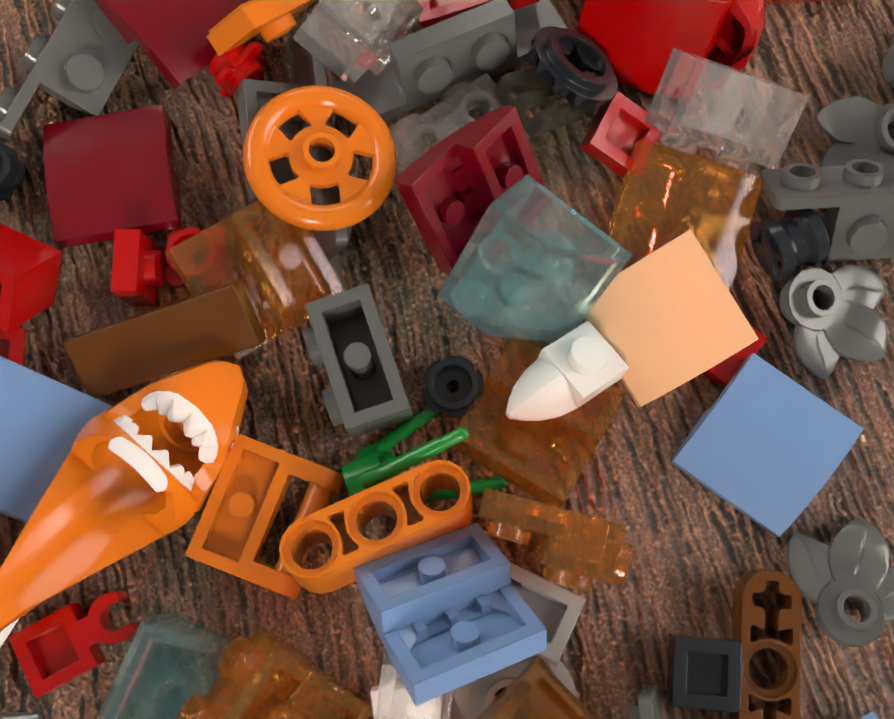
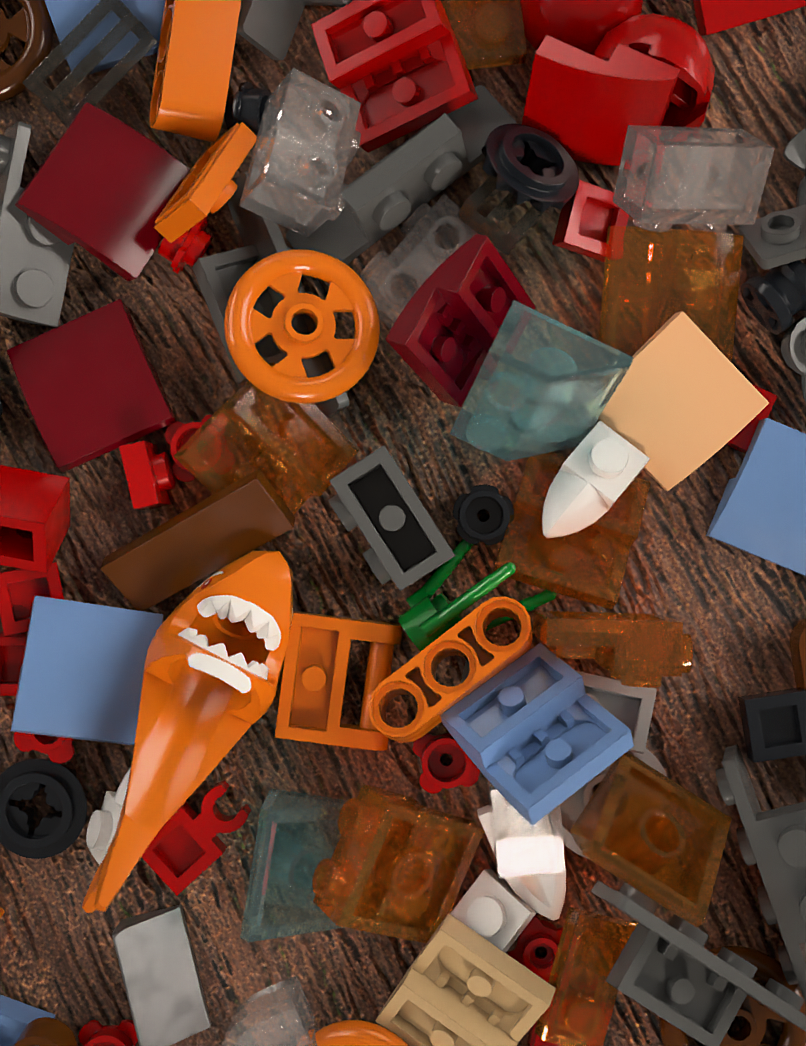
camera: 15 degrees left, 10 degrees up
(340, 637) = (437, 775): none -> red plate

